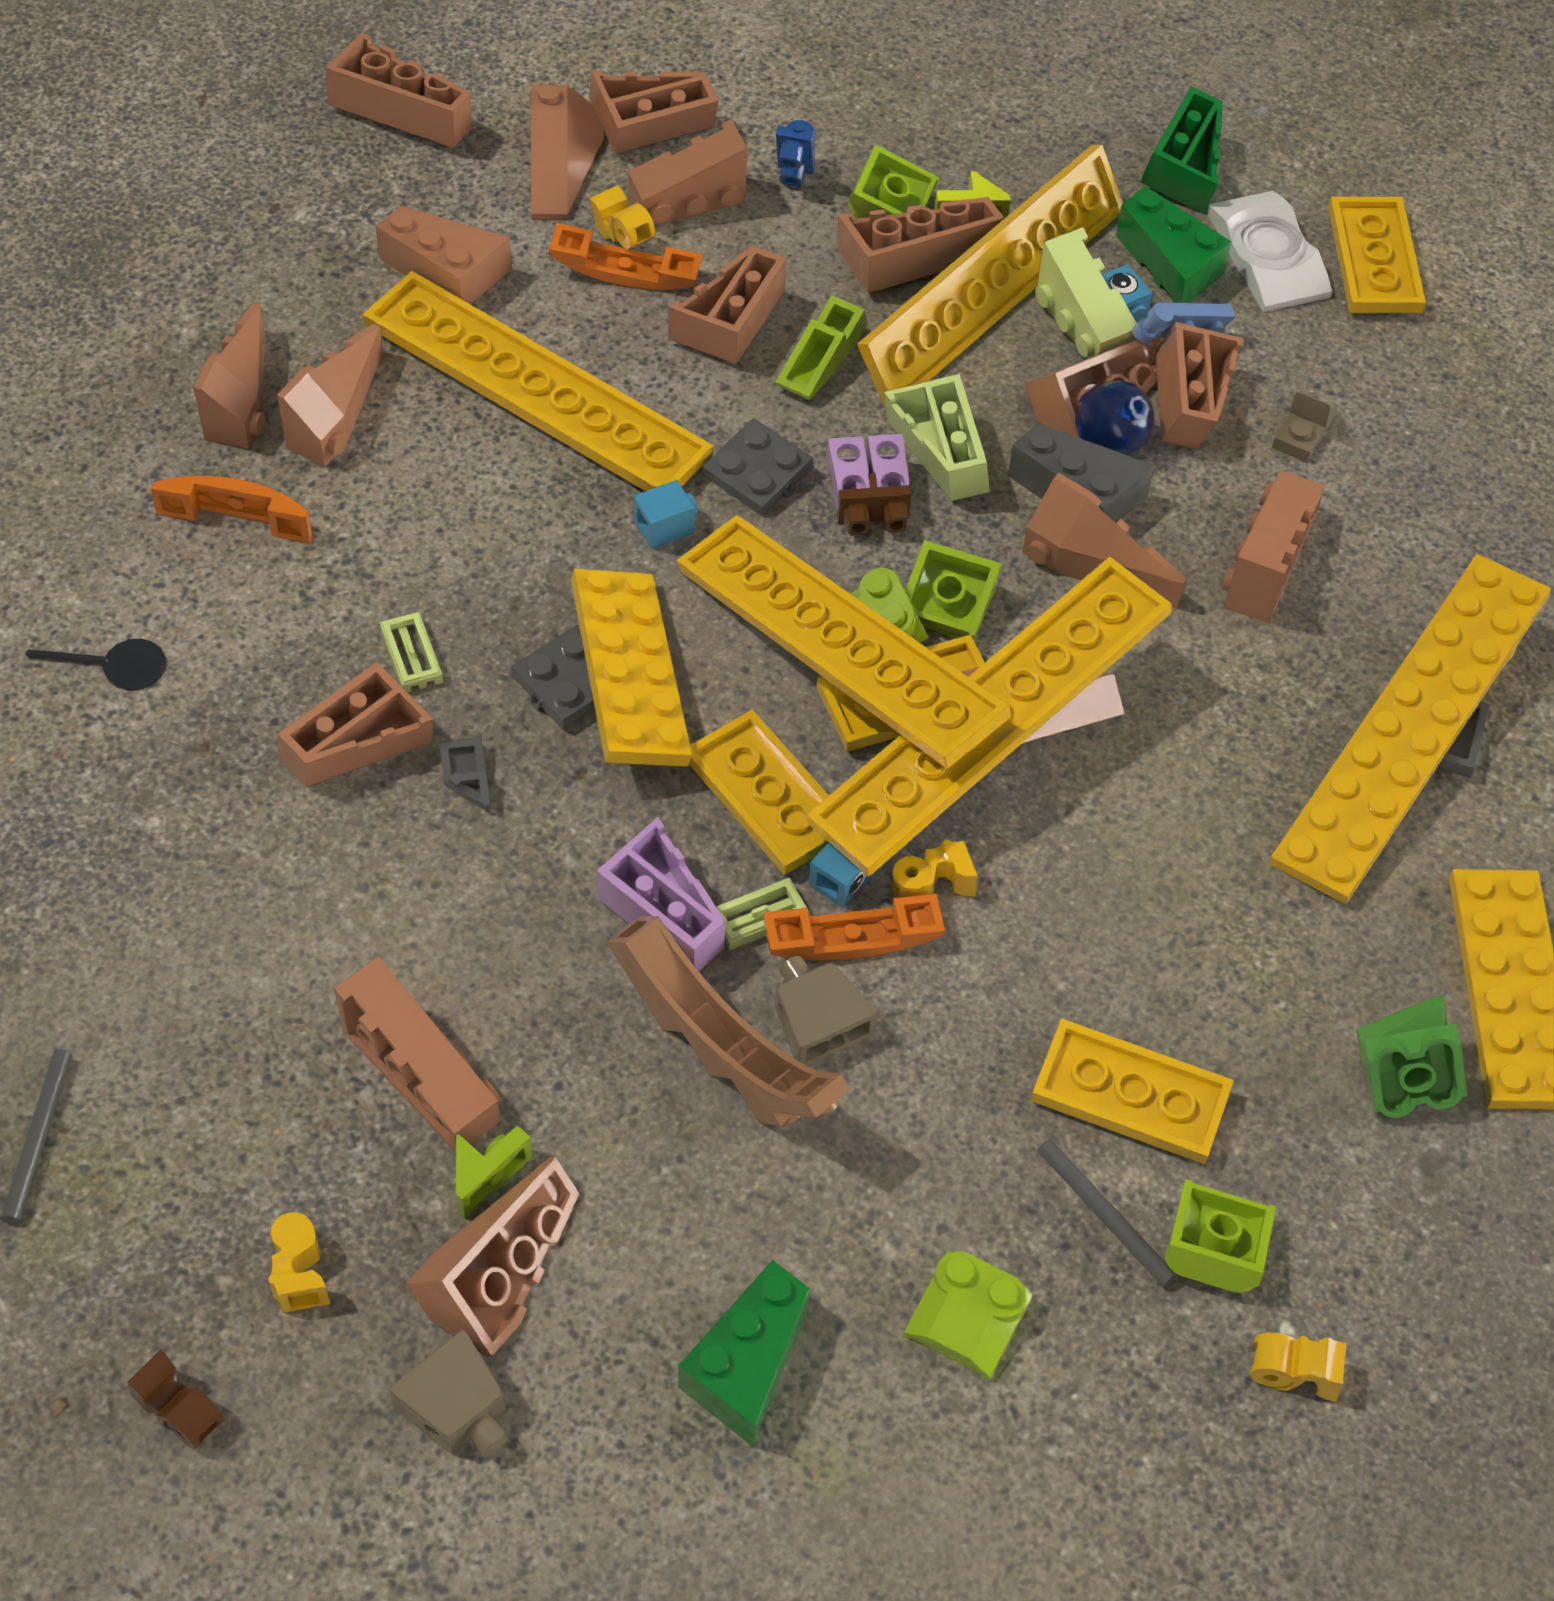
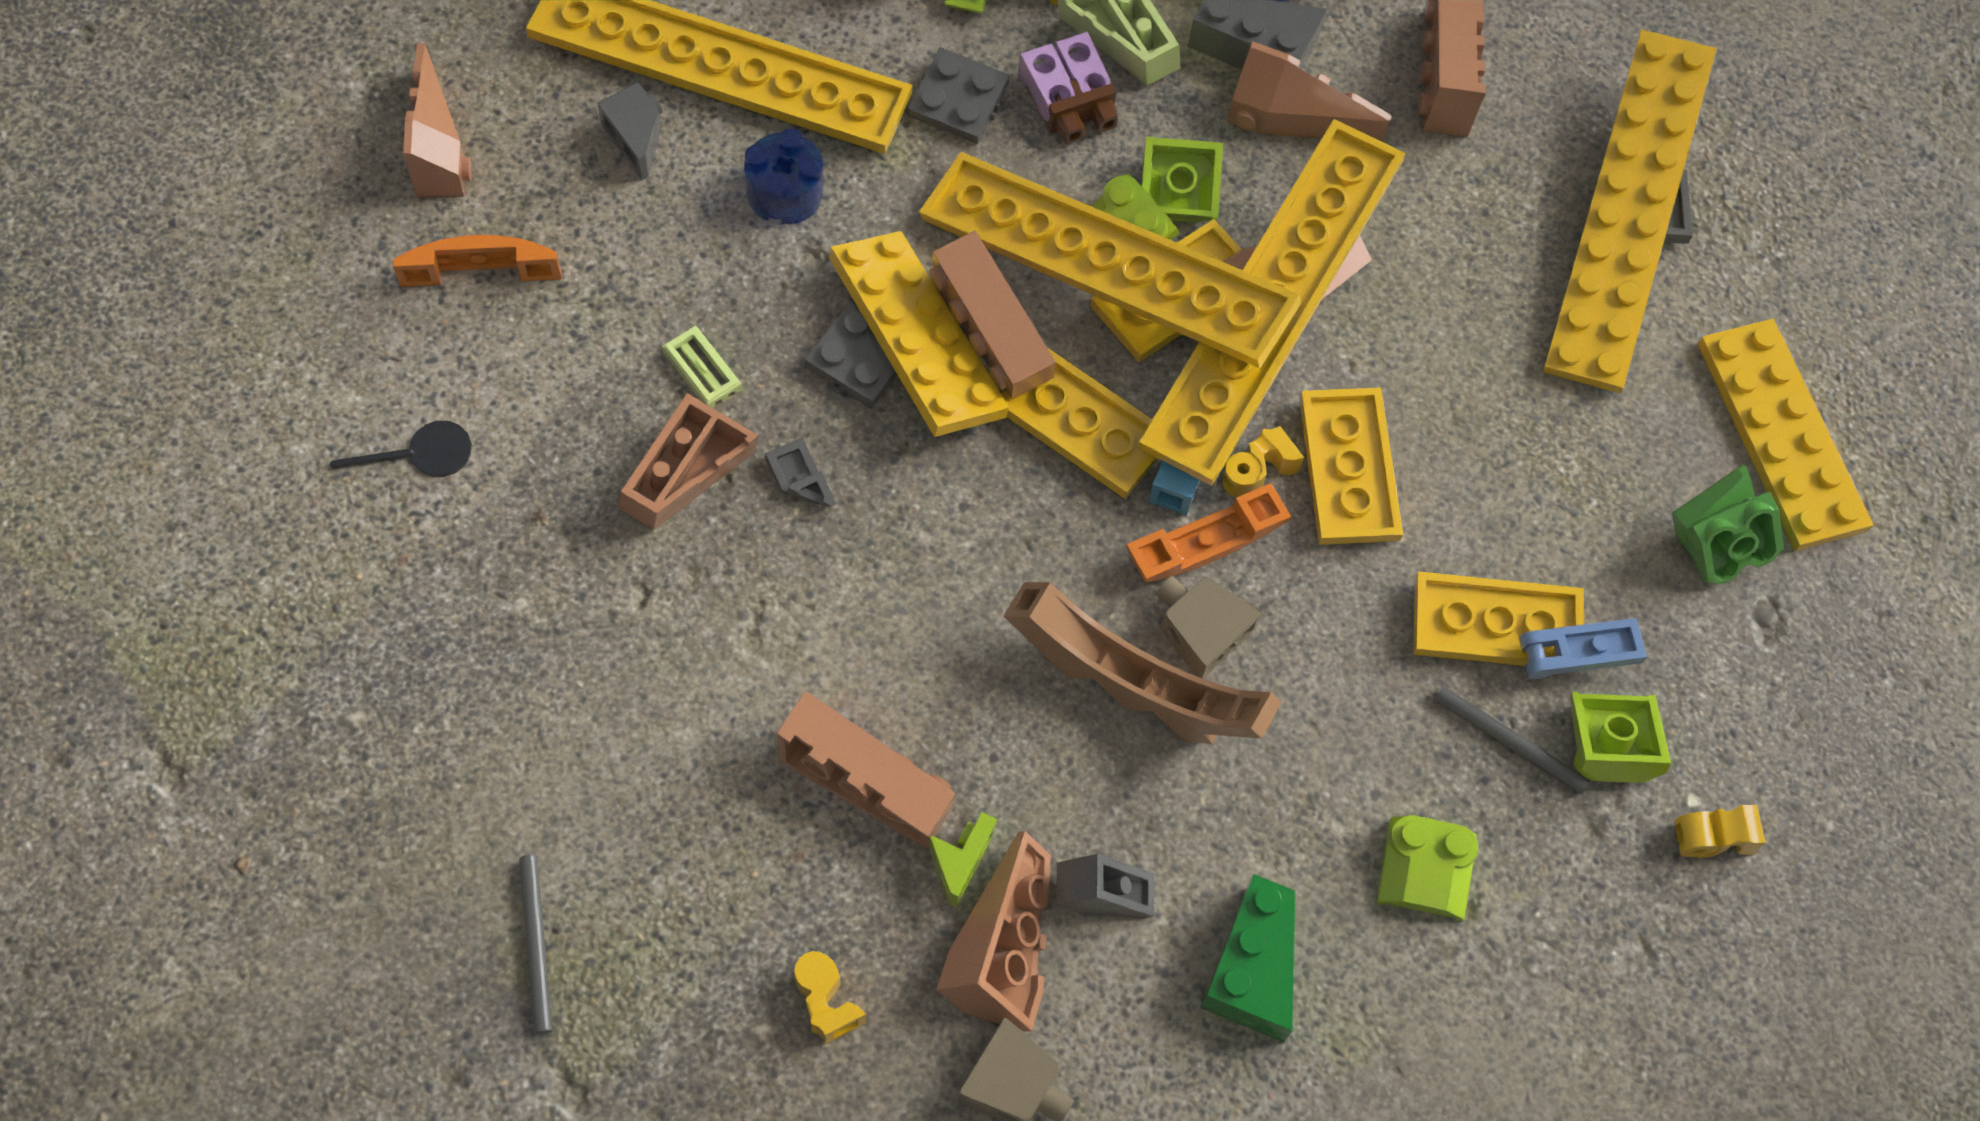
camera: 20 degrees left, 10 degrees up
(325, 401) = (527, 130): nougat wedge -> none
(430, 421) = (633, 125): none -> dark grey slope
(555, 498) = (784, 177): none -> clear blue brick
(619, 1237) = (1104, 888): none -> dark grey slope
(653, 880) = (1022, 547): lavender wedge -> none
(664, 514) = (891, 166): dark azure brick -> none
(704, 665) = (991, 315): none -> nougat wedge
(751, 926) = (1091, 564): yellowish green tile -> none
(1028, 901) = (1350, 466): none -> yellow plate
(1208, 1135) = (1583, 647): none -> medium blue plate

